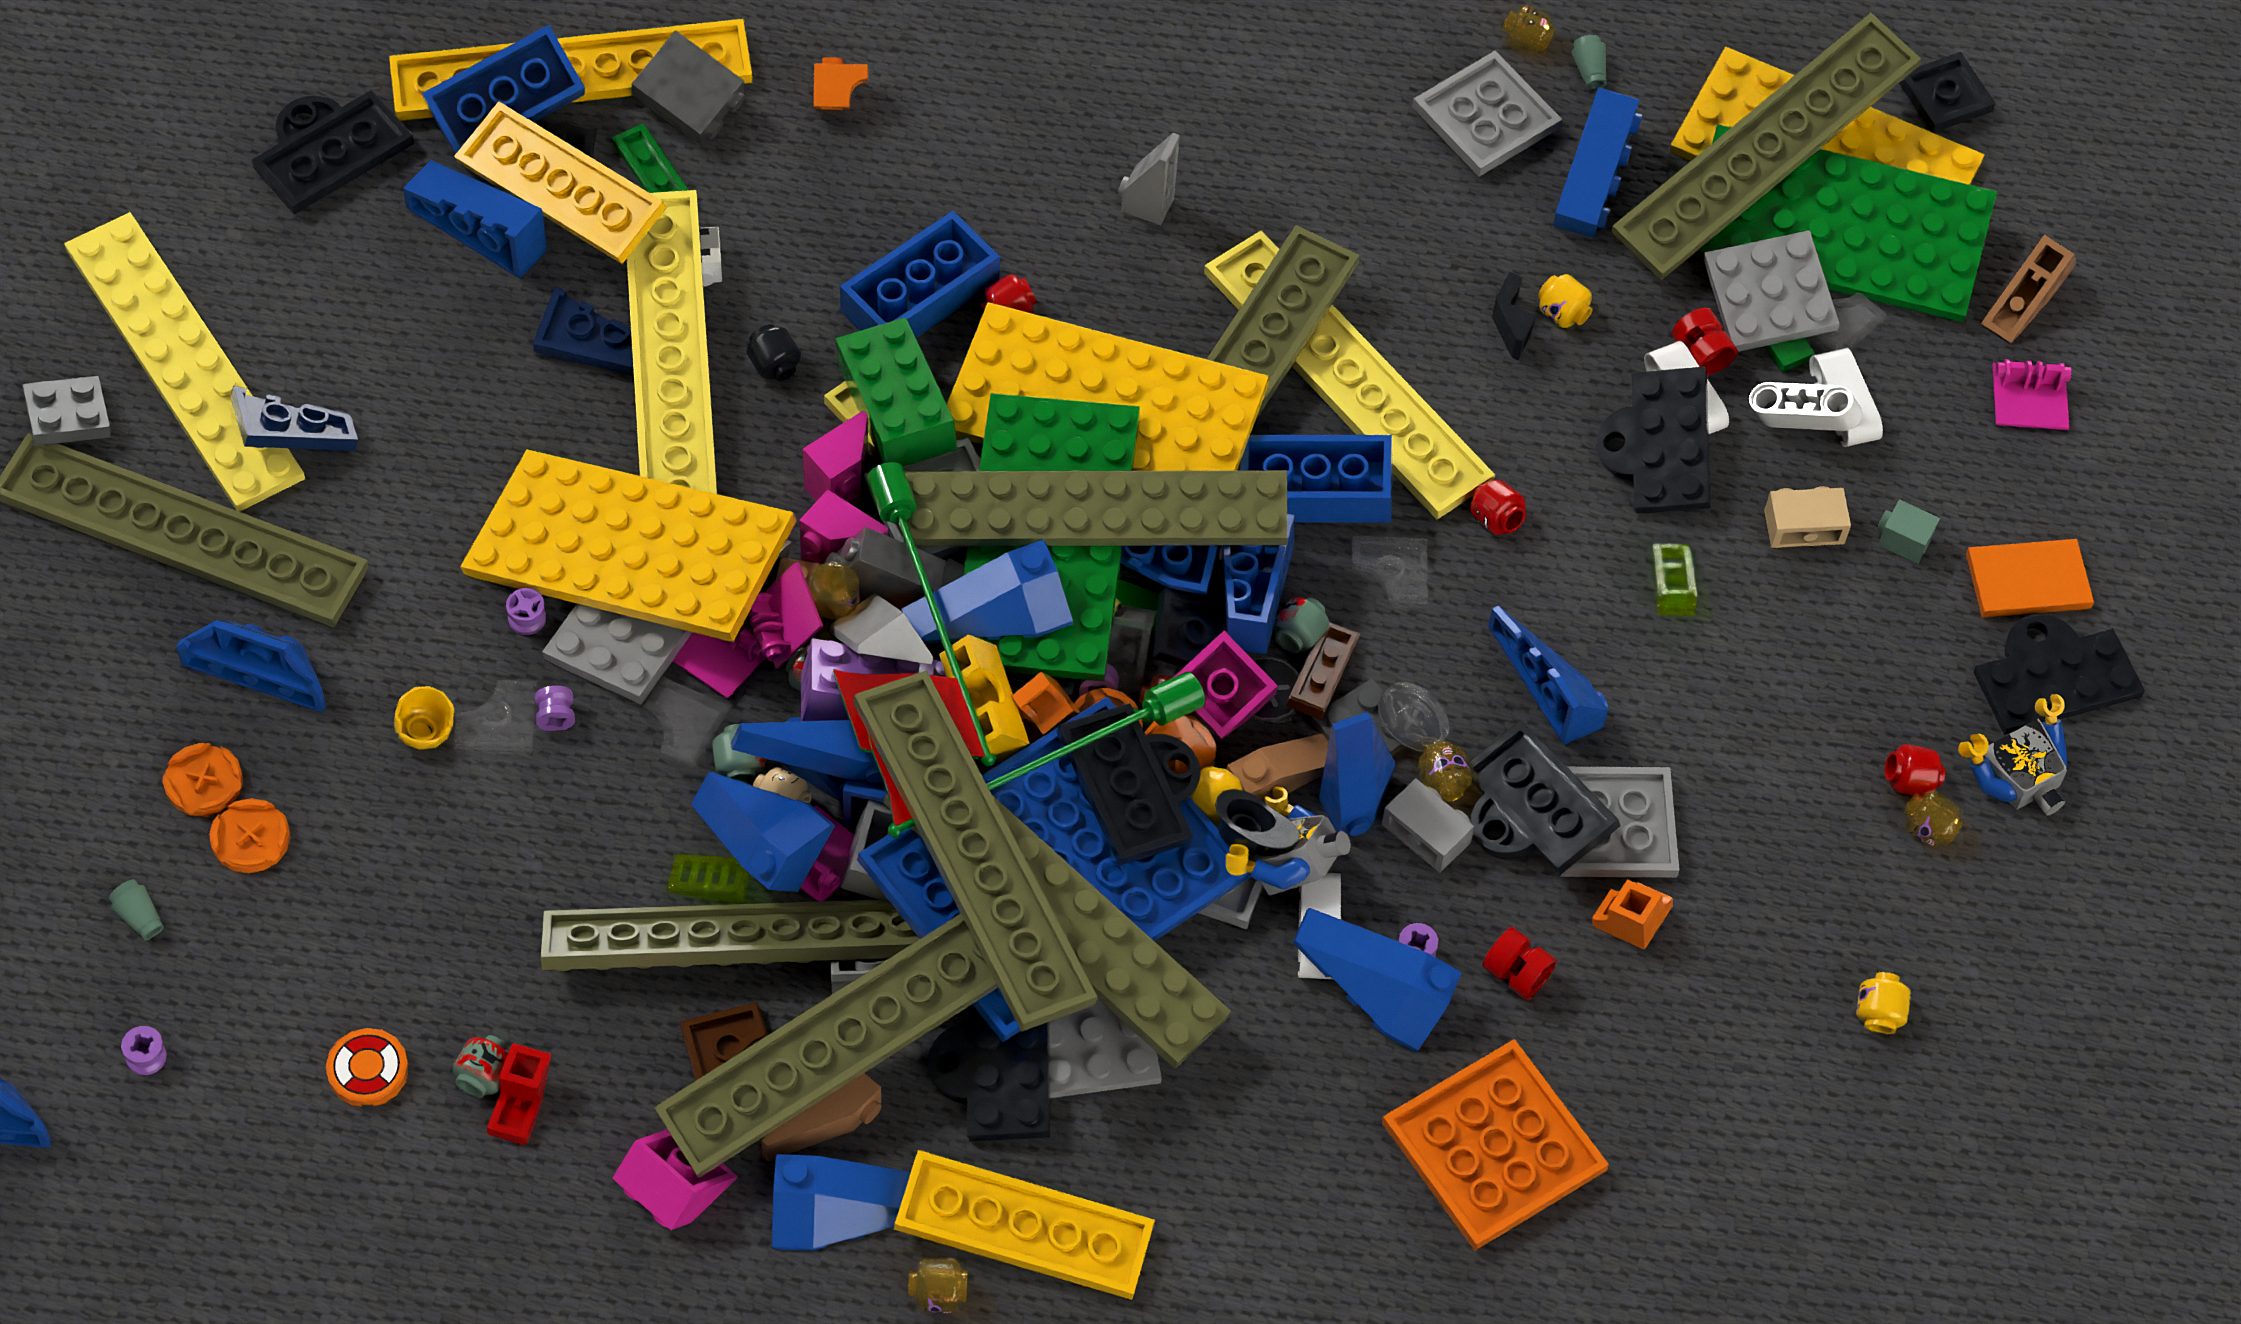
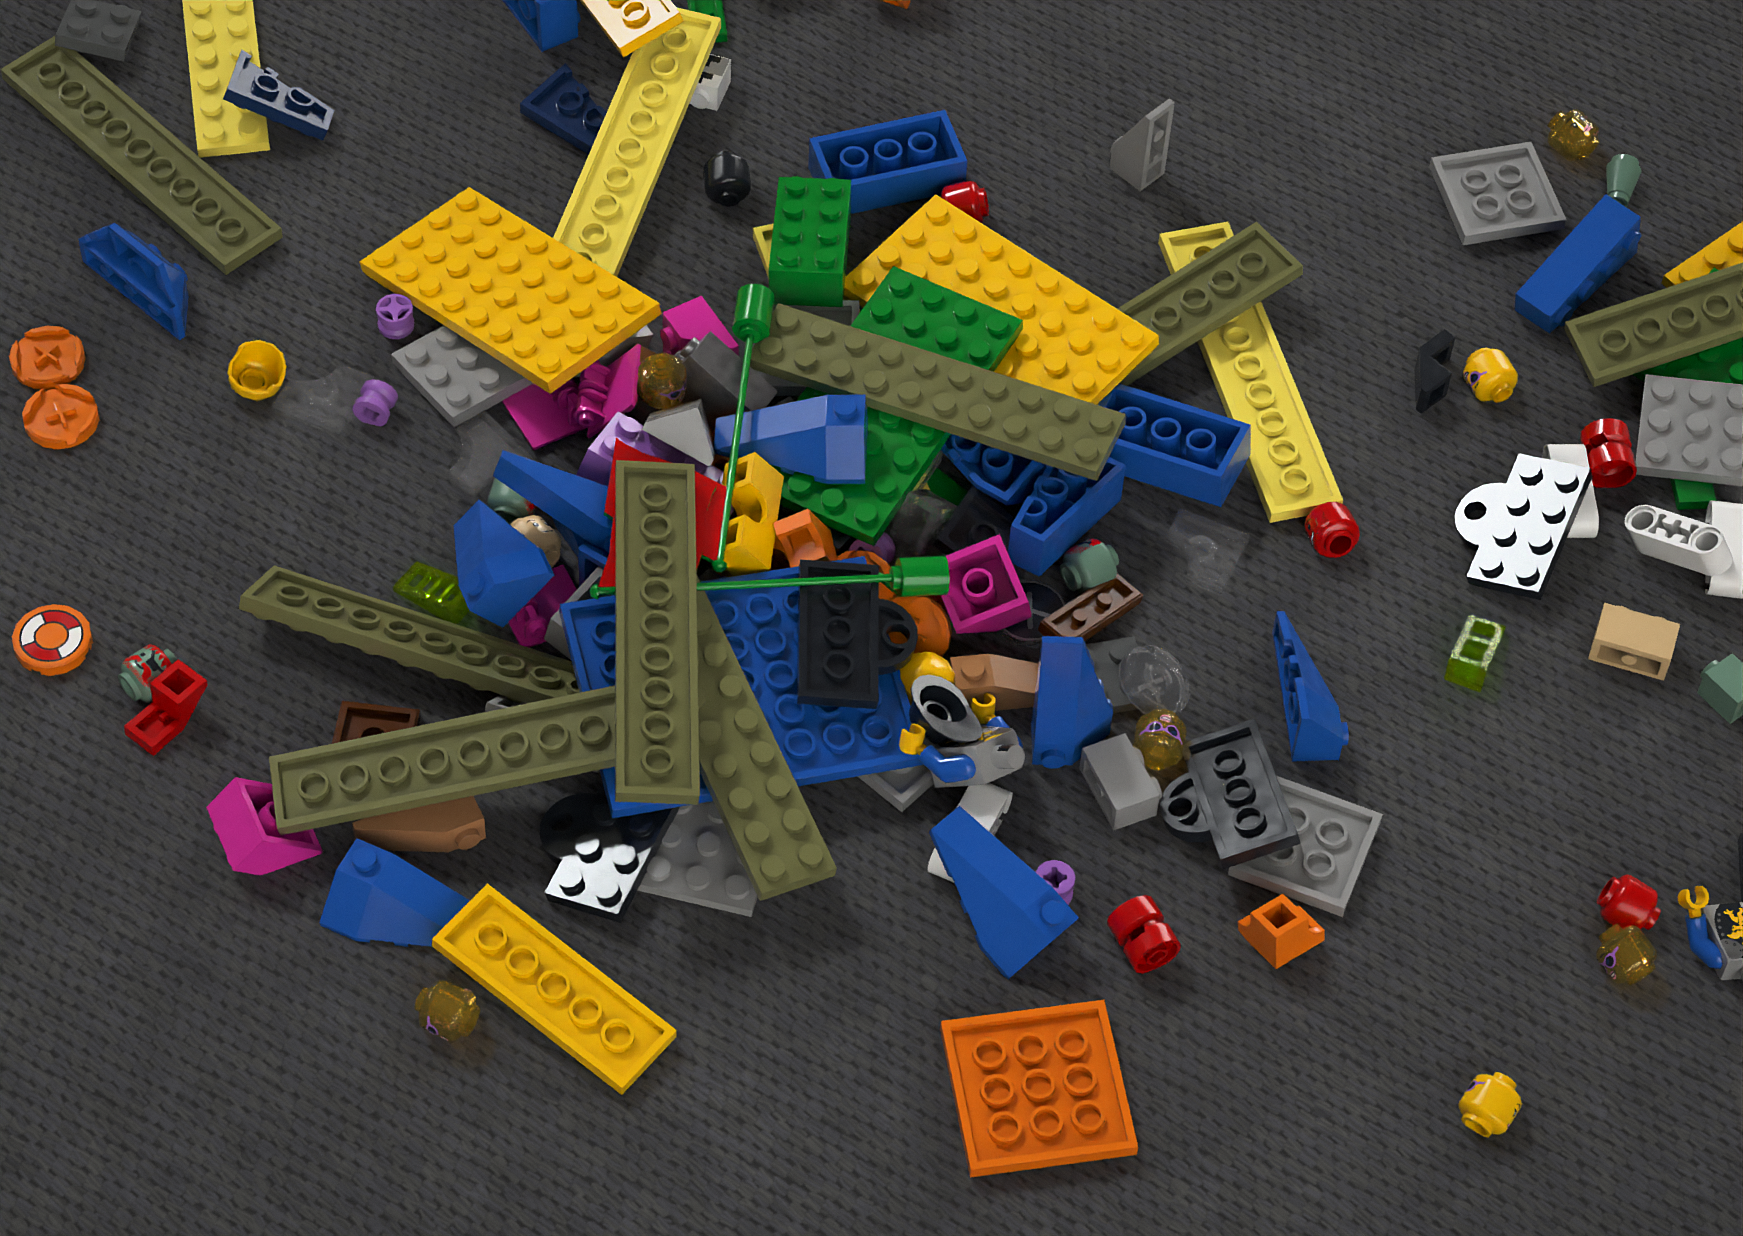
camera: 25 degrees right, 5 degrees down
(838, 461) = (726, 272): dark pink slope -> none

